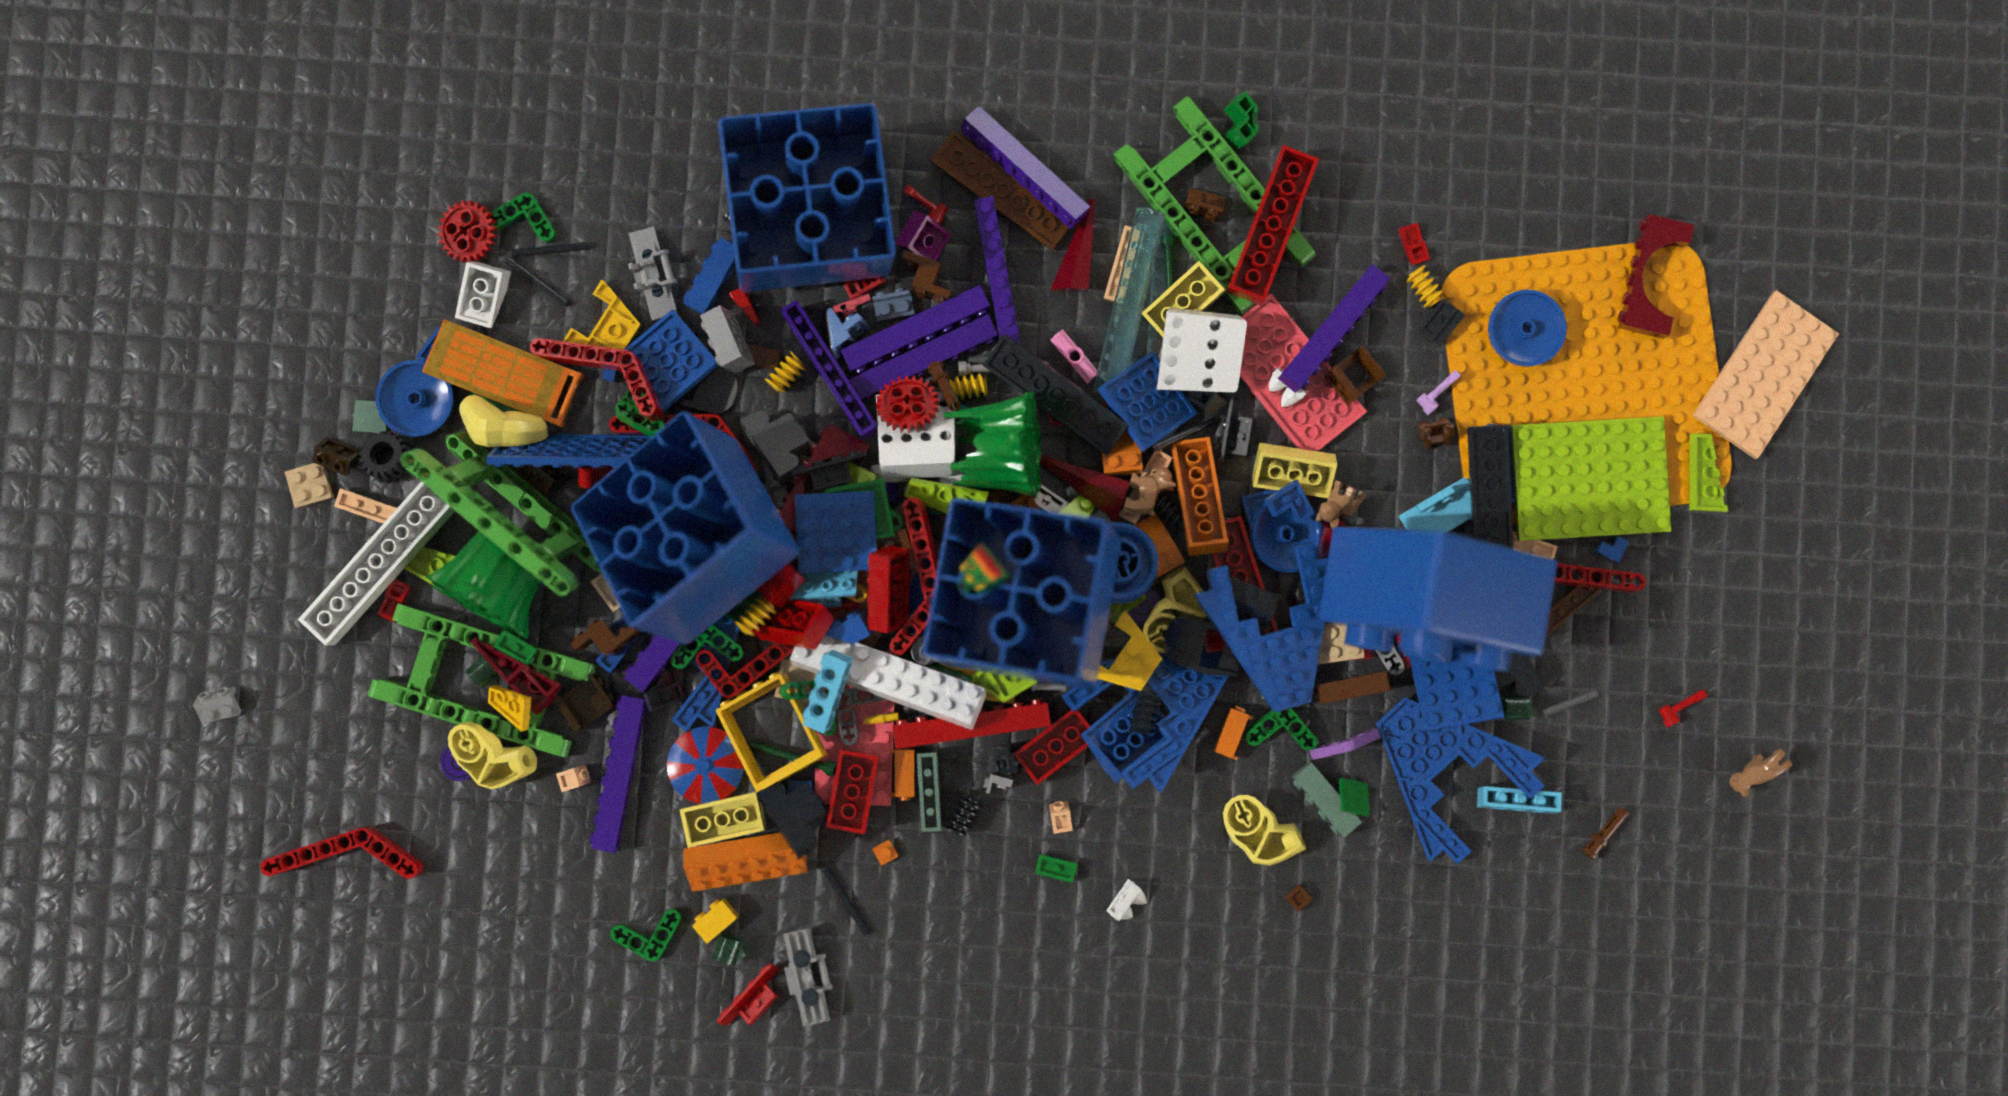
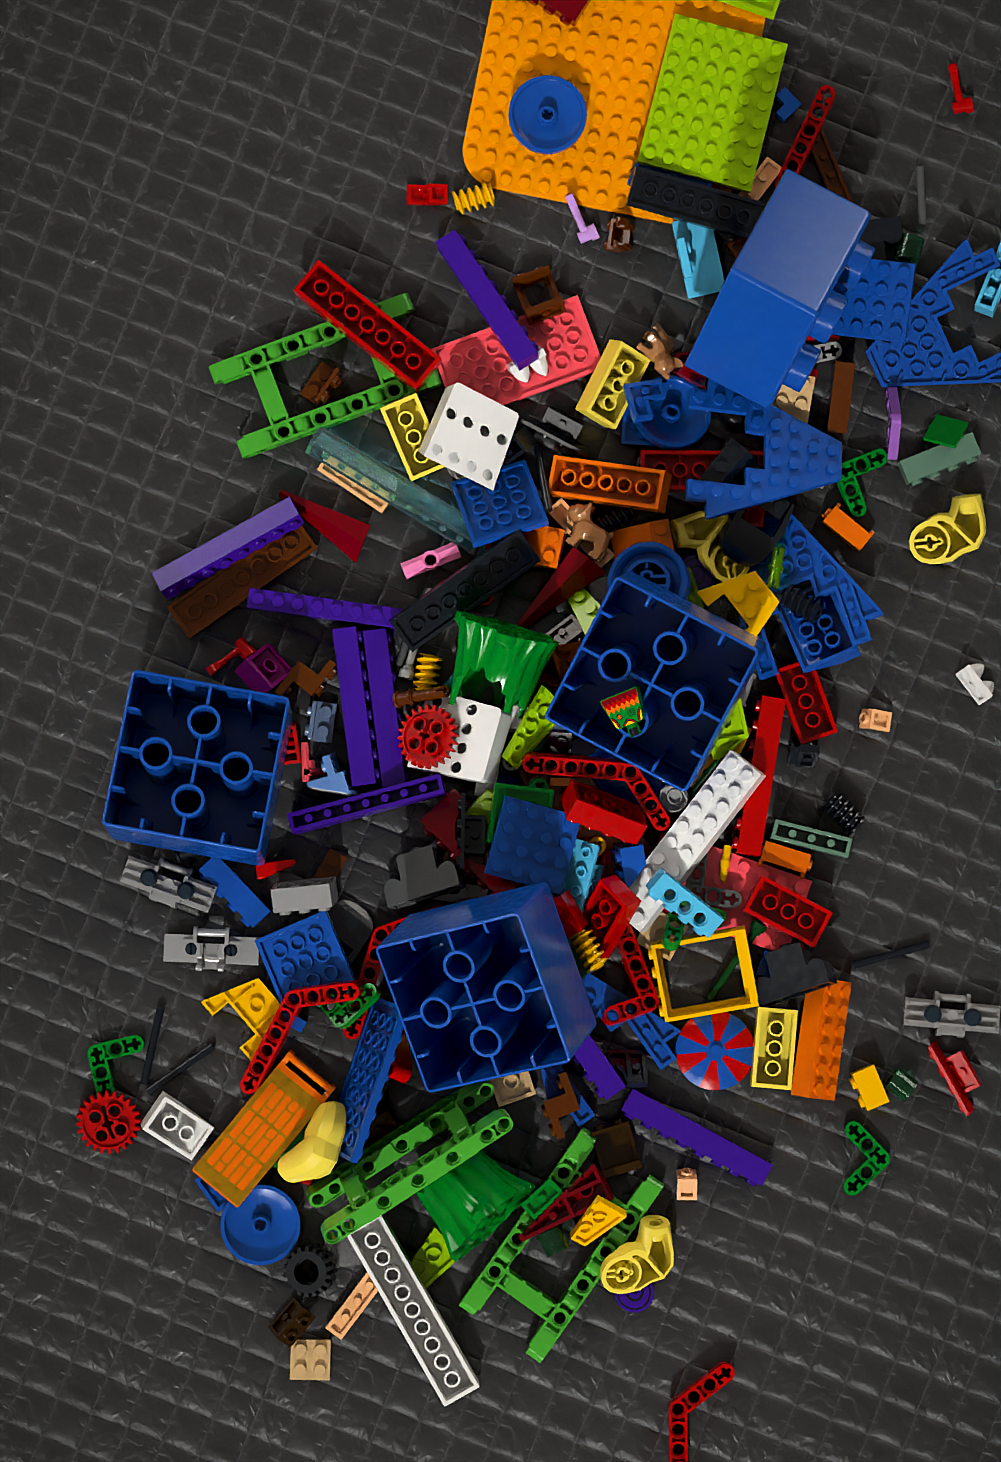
camera: 80 degrees left, 0 degrees up
(367, 418) = (262, 1279): sand green piece -> none
(396, 593) = (449, 1306): red slope -> none
(693, 212) = (167, 890): none -> light grey piece
(701, 640) = (598, 1040): green beam -> none
(786, 373) = (355, 848): yellow piece -> none
(885, 852) = (855, 901): orange plate -> none
(1000, 781) = (822, 766): light grey bracket -> none
(1056, 868) = (923, 740): green plate -> none
(1168, 242) = (348, 433): dark green piece -> none
(1171, 677) = (776, 568): none -> clear neon green pin
(1243, 113) = (244, 317): green brick -> none
(1442, 321) = (513, 193): black plate -> none

